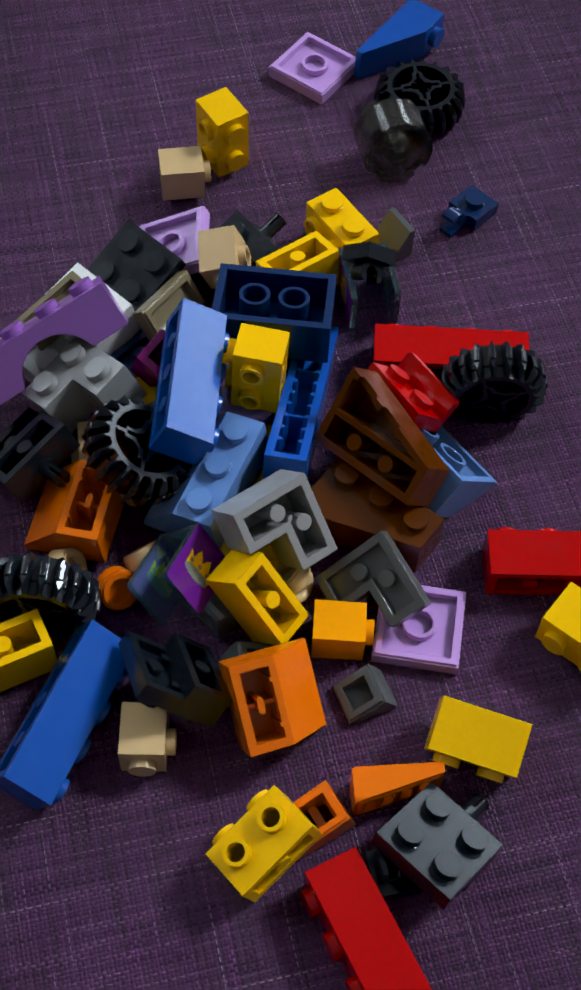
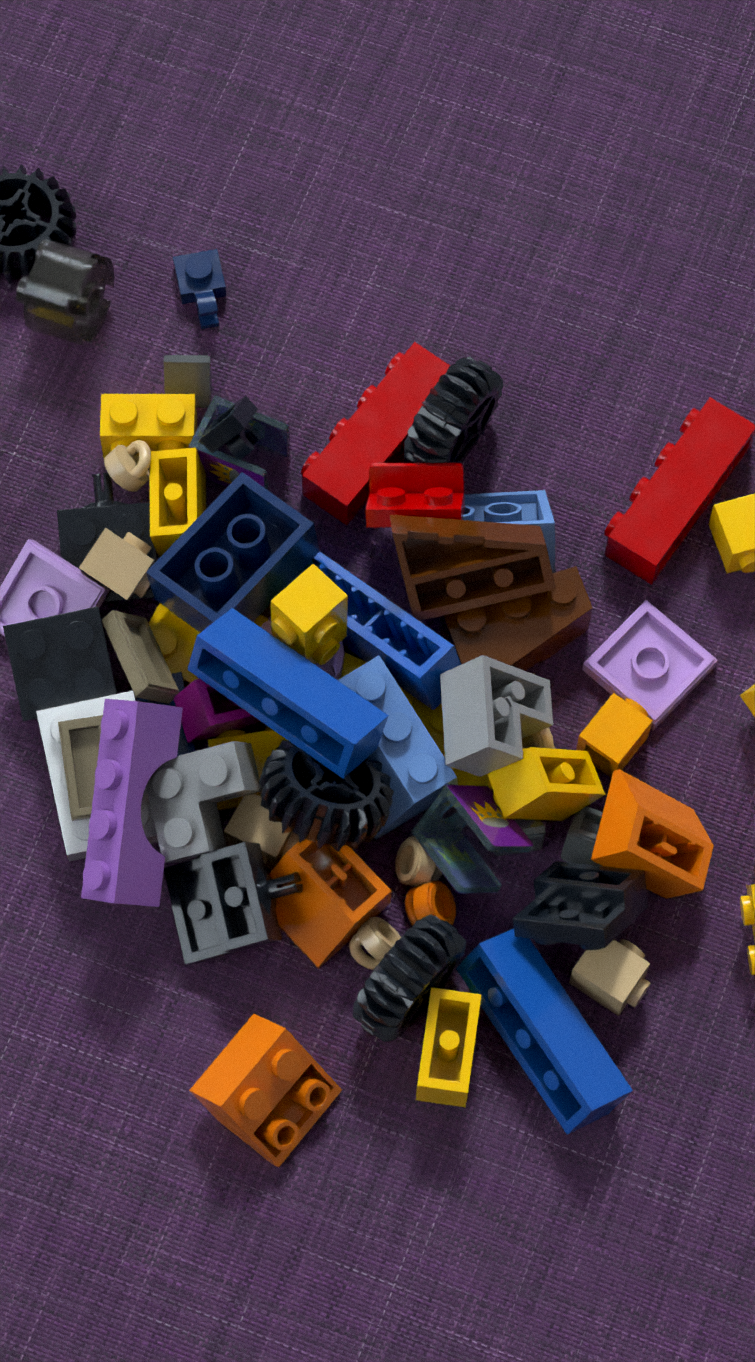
camera: 55 degrees left, 10 degrees up
(297, 225) = (127, 467): none -> tan tile
(364, 694) = (686, 758): dark grey slope -> none
(376, 570) = (593, 656): dark grey plate -> none

